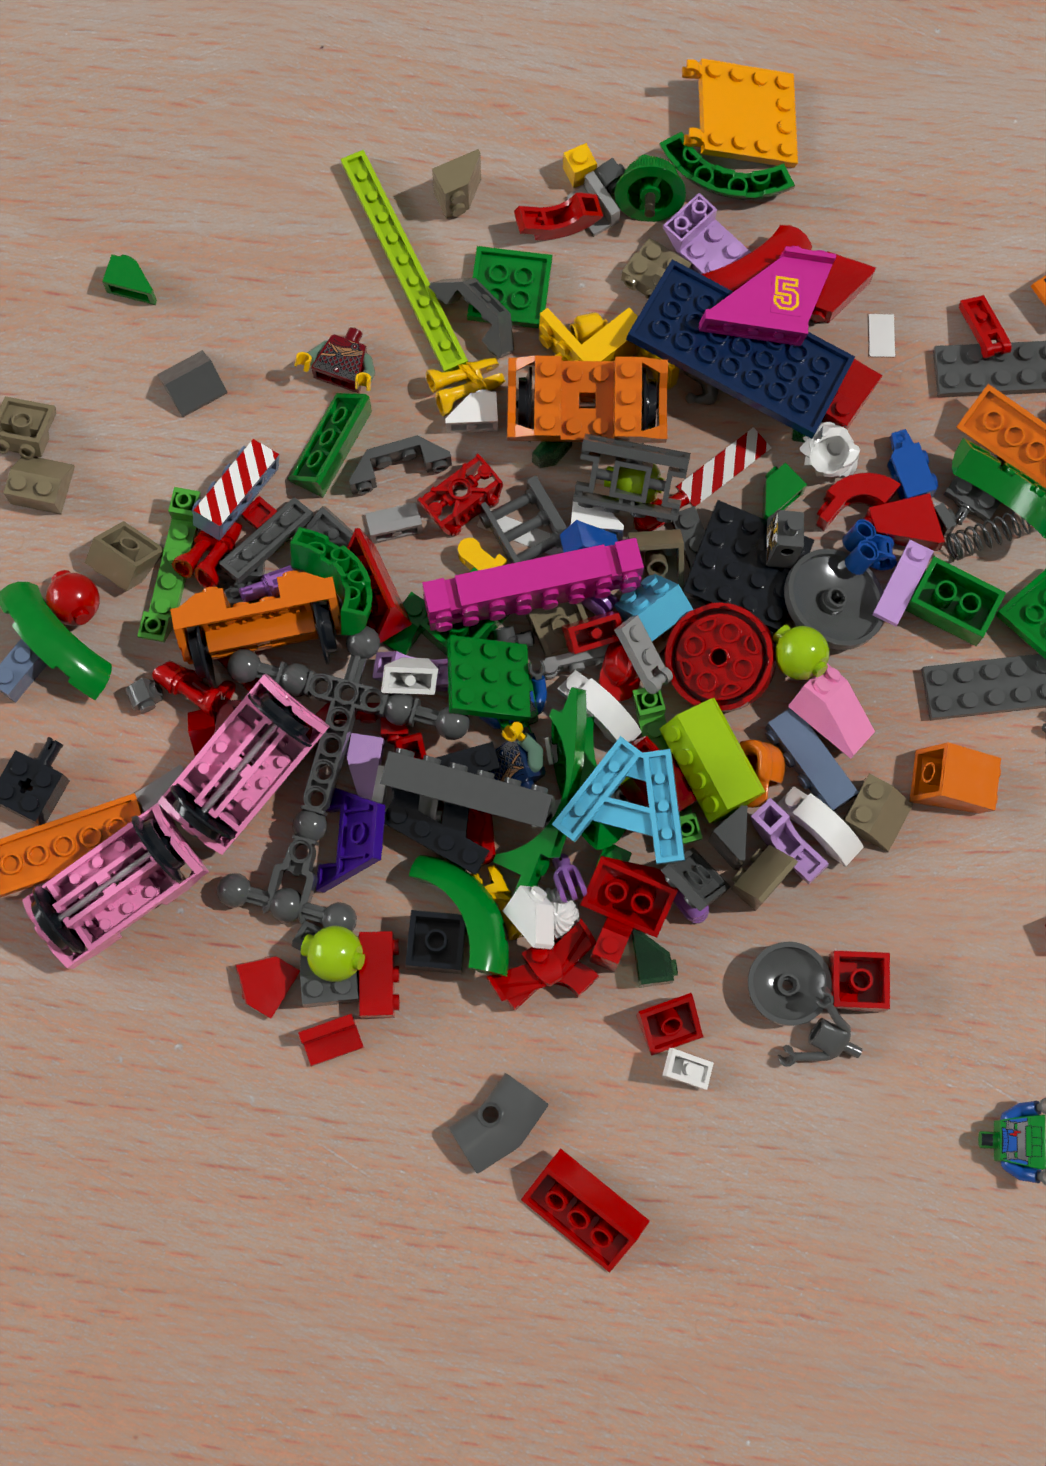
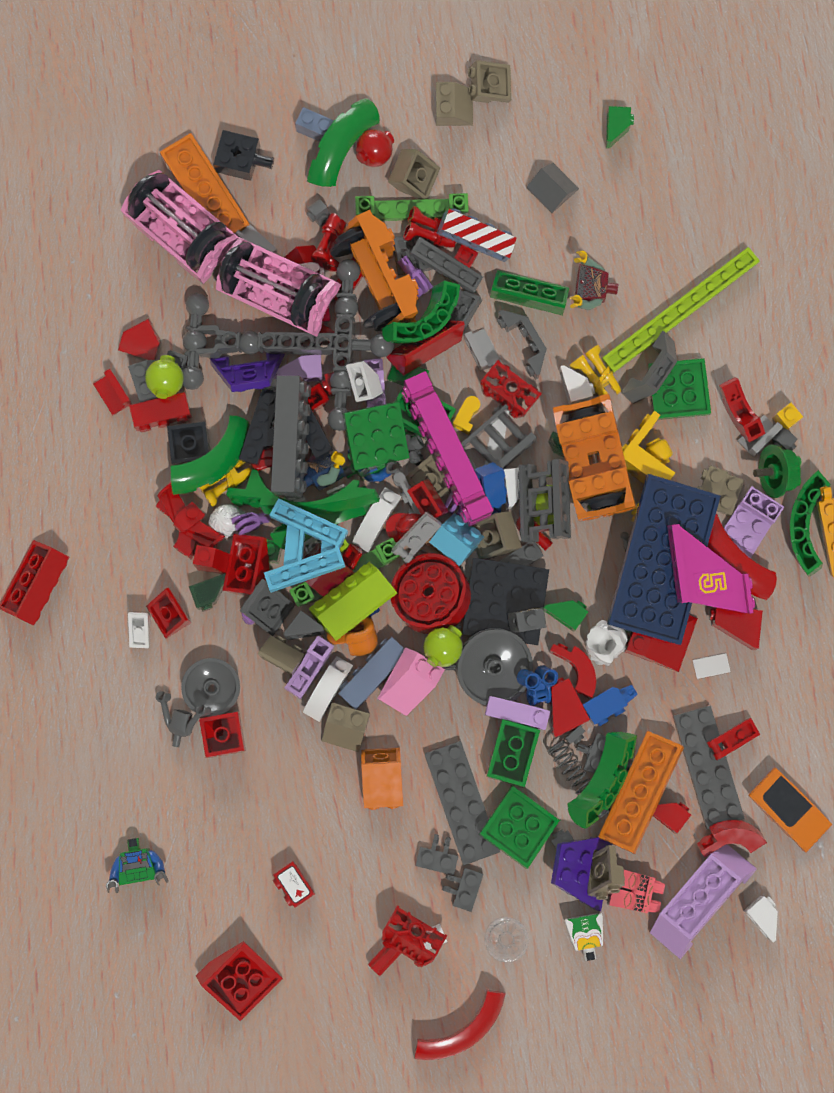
camera: 75 degrees right, 5 degrees up
(457, 183) = (747, 333): dark tan slope -> none
(489, 1142) = (65, 510): dark grey panel -> none
(532, 916) = (216, 502): white slope -> none
(724, 466) = (580, 571): sticker -> none

